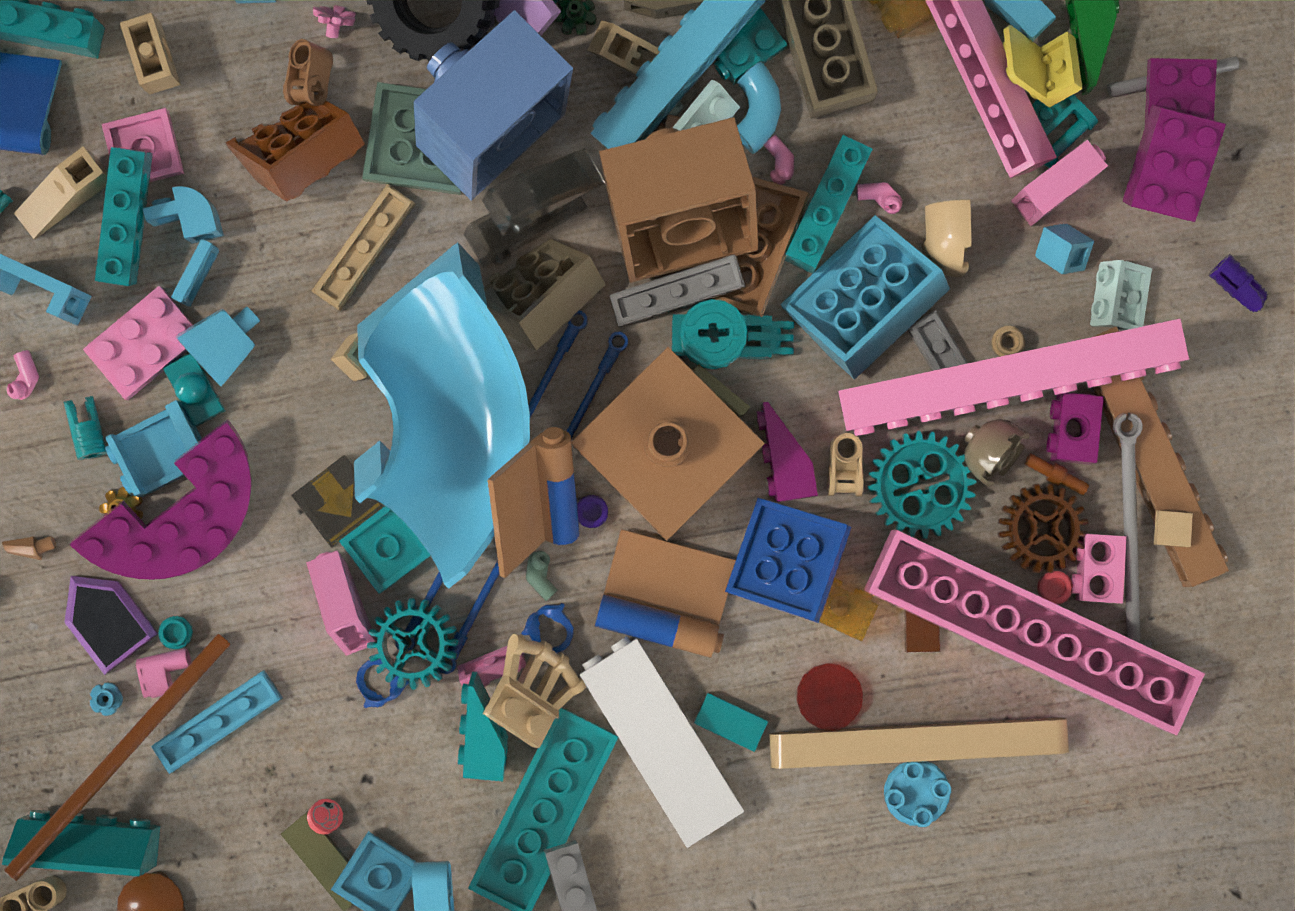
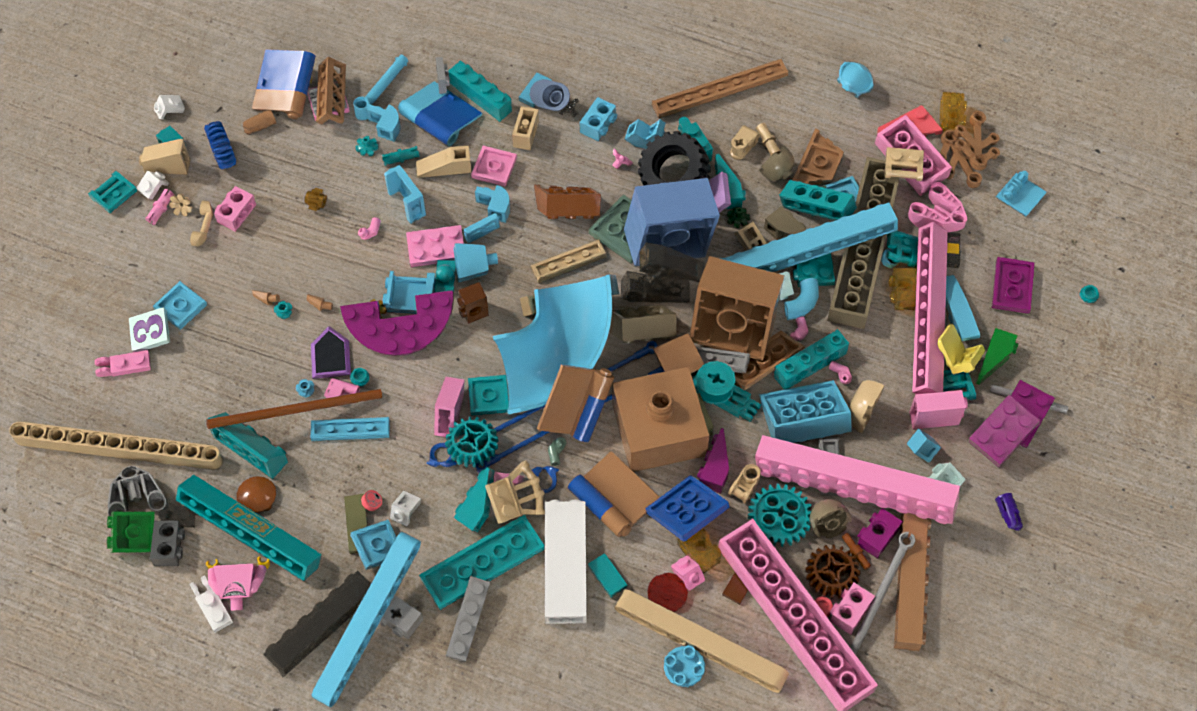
camera: 30 degrees right, 25 degrees down
(86, 435) = (381, 267): teal hinge -> none
(123, 216) = (465, 184): teal brick -> none
(267, 417) = (472, 303): none -> reddish brown brick
(309, 71) = (592, 173): medium nougat piece -> none
(332, 503) = (479, 361): clear smoke tile -> none
(379, 797) = (404, 507): none -> white bracket
(592, 511) = (601, 436): dark purple tile -> none
(633, 322) = (679, 354): none -> medium nougat slope
(841, 651) = (689, 572): none -> bright pink bracket
(1173, 528) = (902, 604): tan tile -> none

